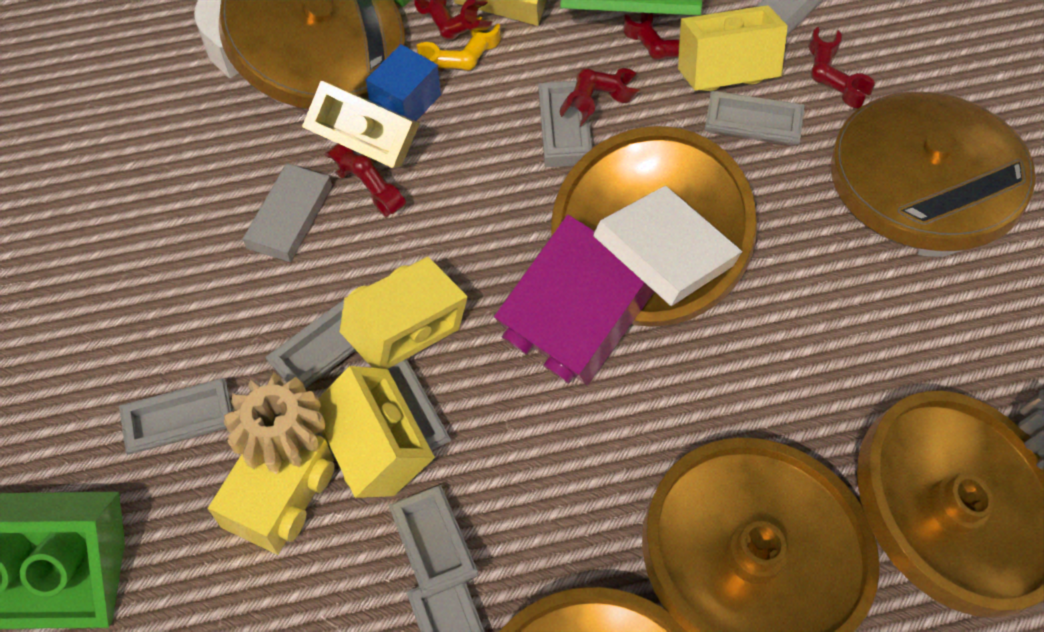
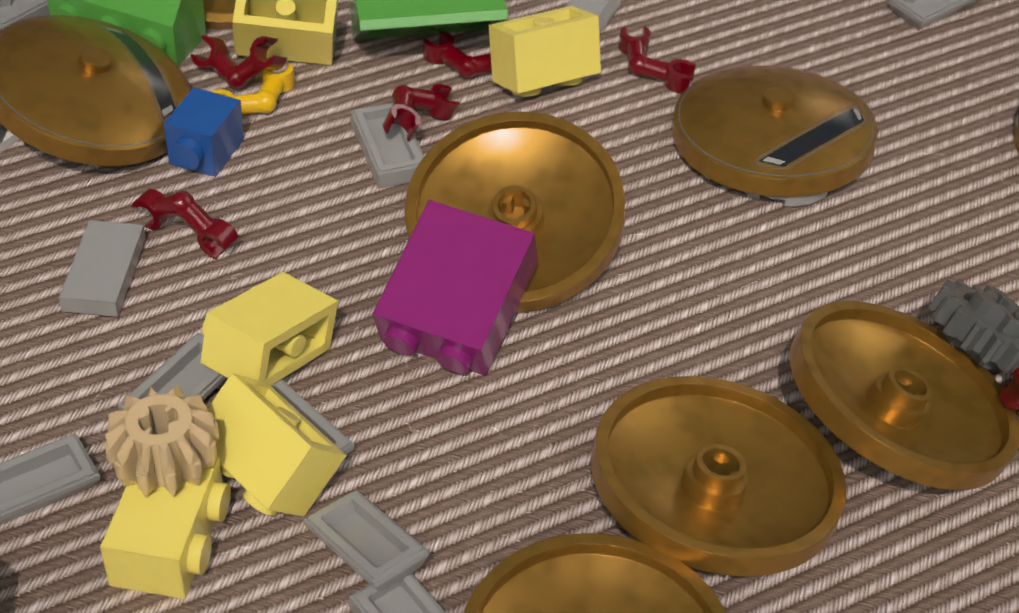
camera: 20 degrees left, 15 degrees down
(360, 124) = (171, 162): brick -> none
(667, 244) = (540, 210): white tile -> none
(754, 118) = (591, 111): light grey tile -> none

